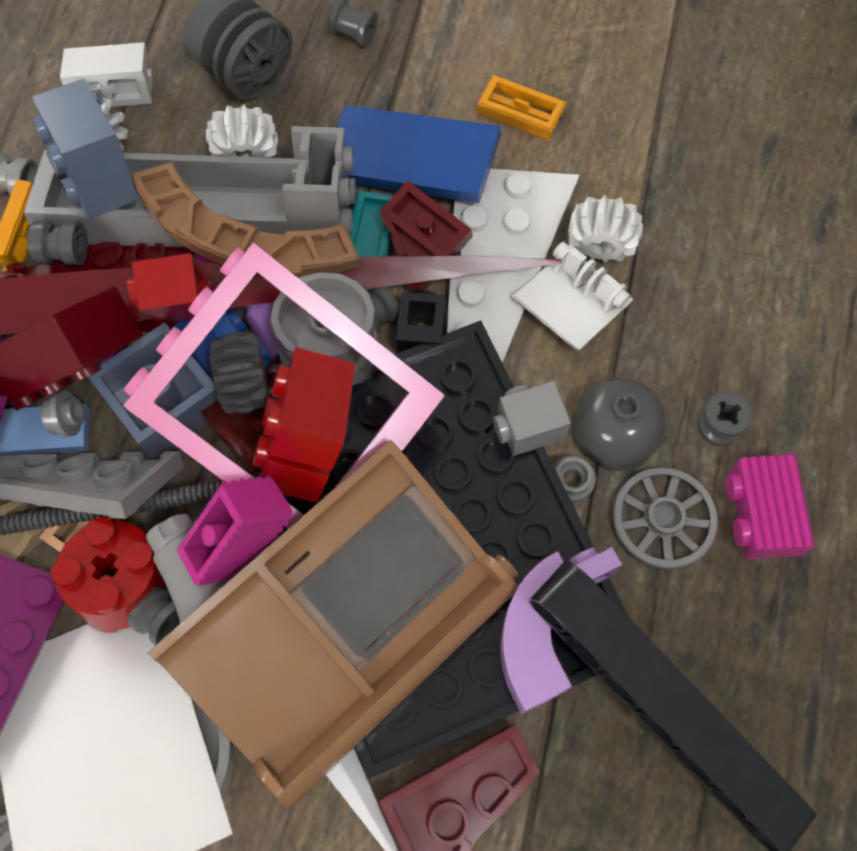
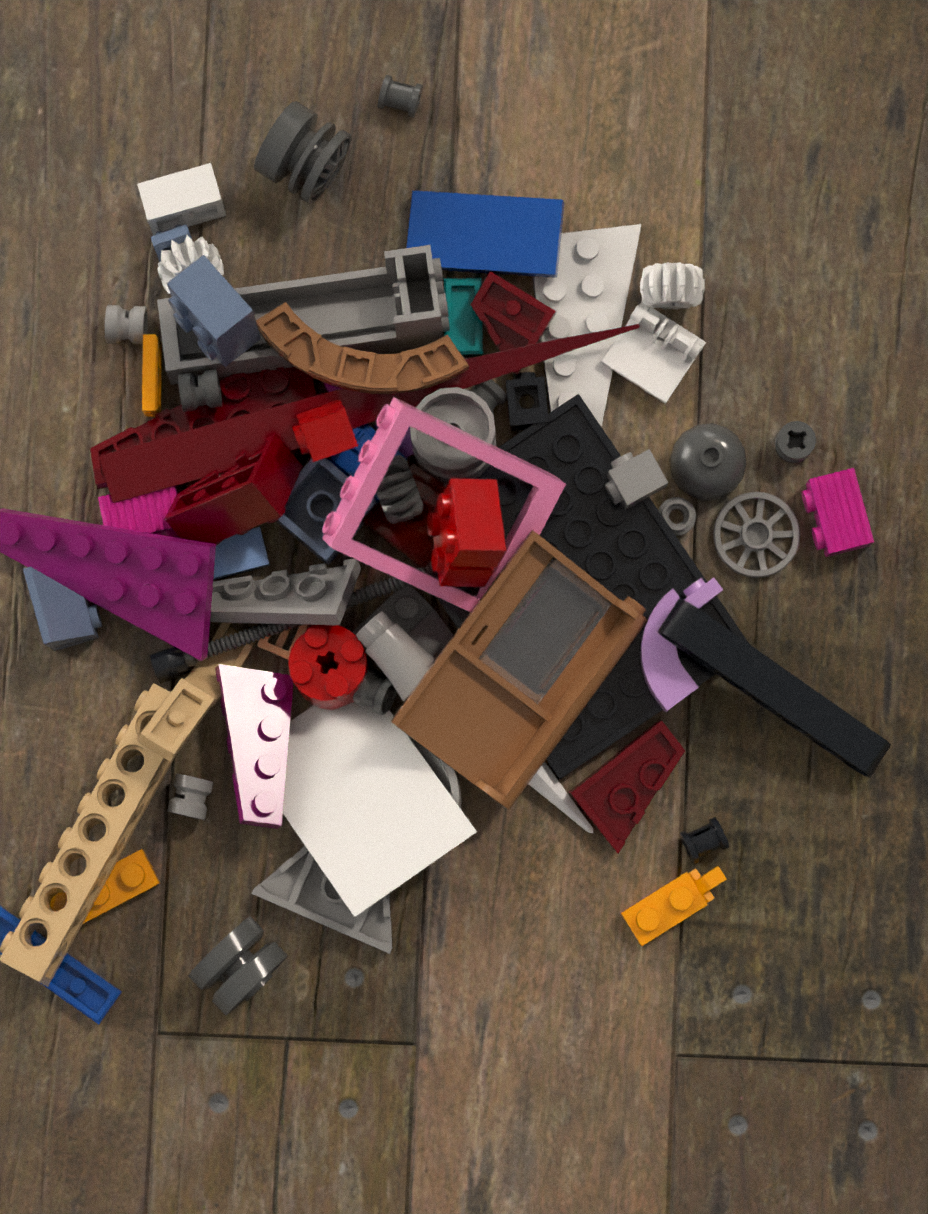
camera: 10 degrees left, 15 degrees up
(63, 414) = (251, 545): light grey plate -> none
(234, 529) = (431, 622): dark pink brick -> none
(241, 133) = (330, 251): white gear -> none
(518, 112) = (571, 172): light orange tile -> none

